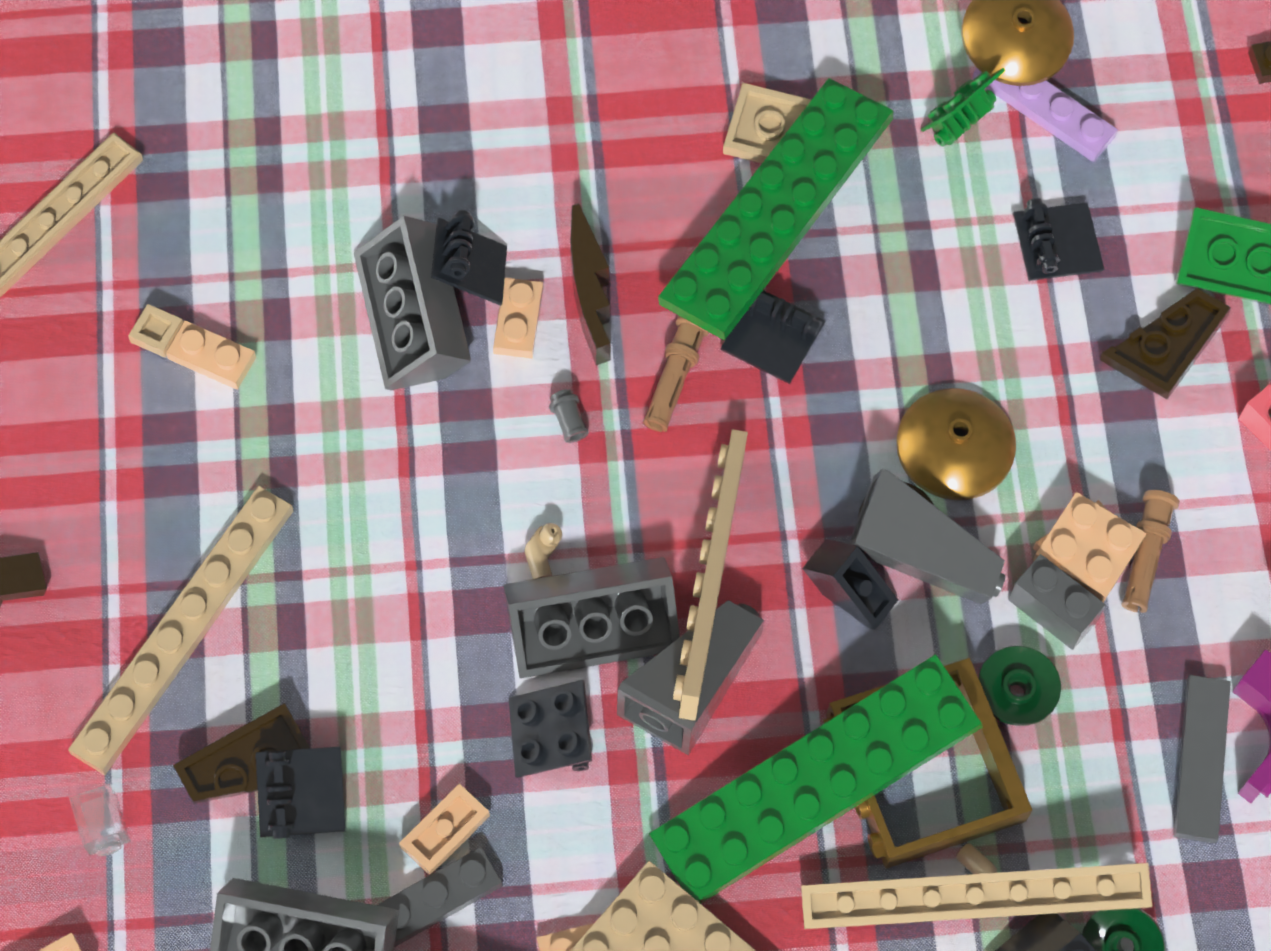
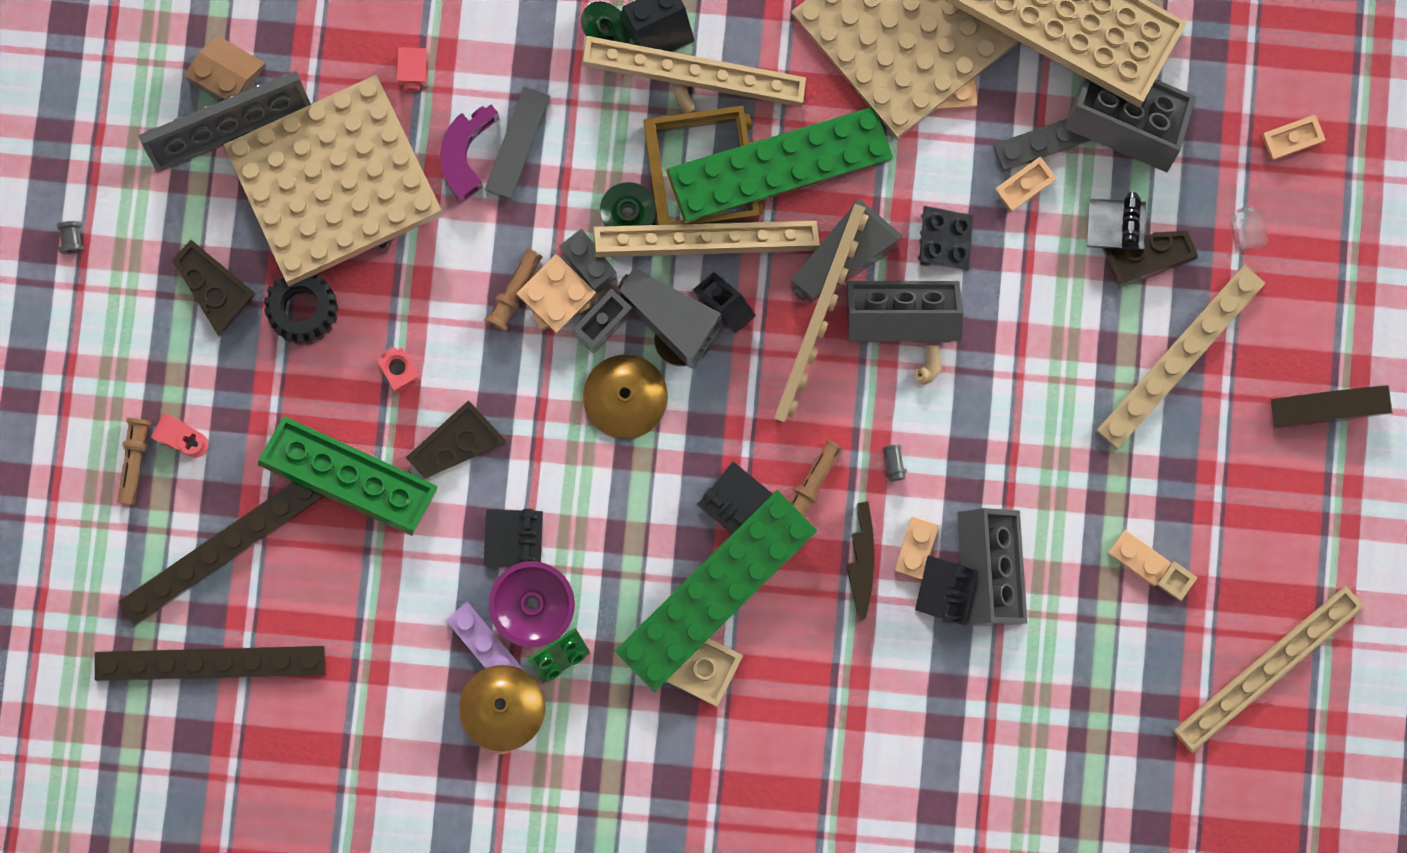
camera: 170 degrees left, 15 degrees up
(898, 654) = (705, 238): none -> tan plate
(1016, 140) = (526, 625): none -> magenta dish
(1018, 518) = (602, 321): none -> dark grey brick

